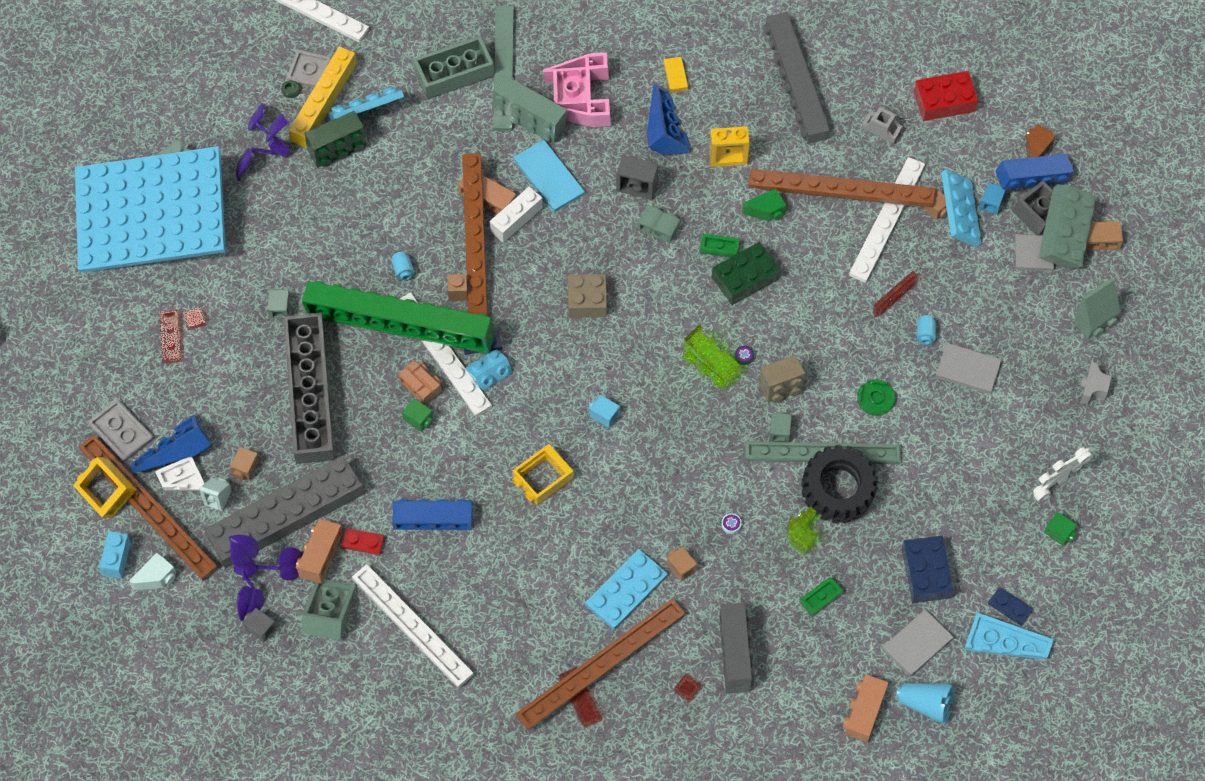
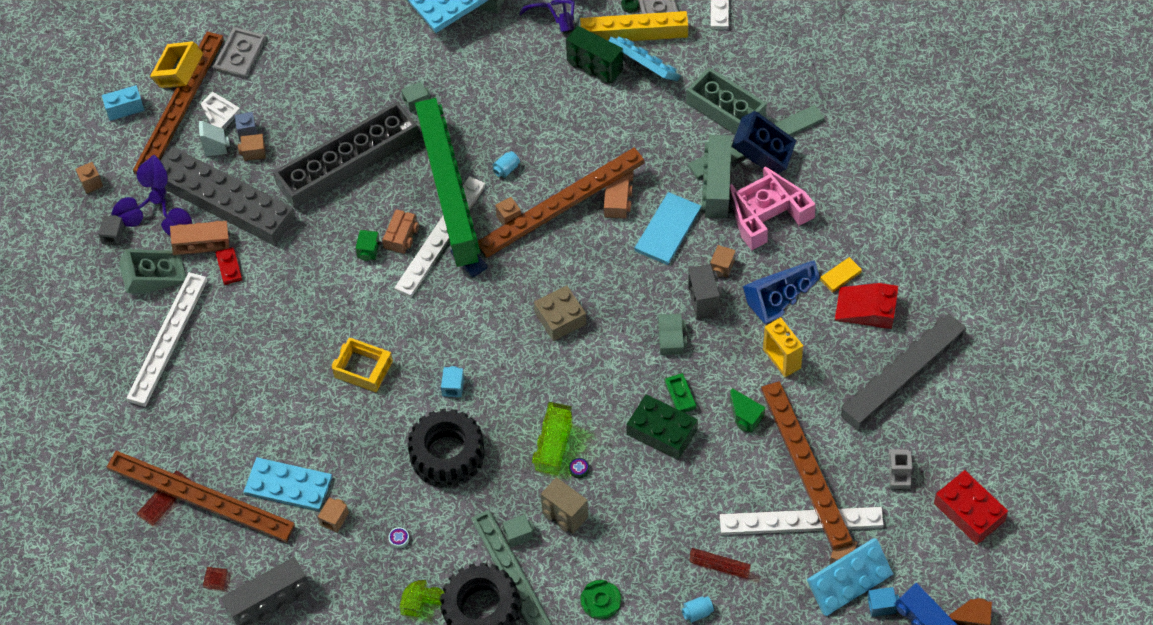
camera: 65 degrees right, 5 degrees down
(153, 574) = (121, 137): light aqua slope -> none
(170, 336) = (344, 42): clear red tile -> none
(185, 442) = (243, 95): blue wedge -> none
(185, 620) = (89, 177): none -> medium nougat brick
(194, 318) = (370, 49): clear red tile -> none
(217, 458) = (245, 124): none -> sand blue brick
(432, 515) = (278, 302): blue brick -> none
(489, 369) = (443, 276): medium azure bracket -> none
(516, 214) = (608, 220): white brick -> none
(520, 58) = (763, 142): none -> dark blue brick
(610, 150) = (723, 261): none -> medium nougat brick
(670, 466) = (452, 469): none -> black tyre
(718, 69) = (867, 304): none -> red slope

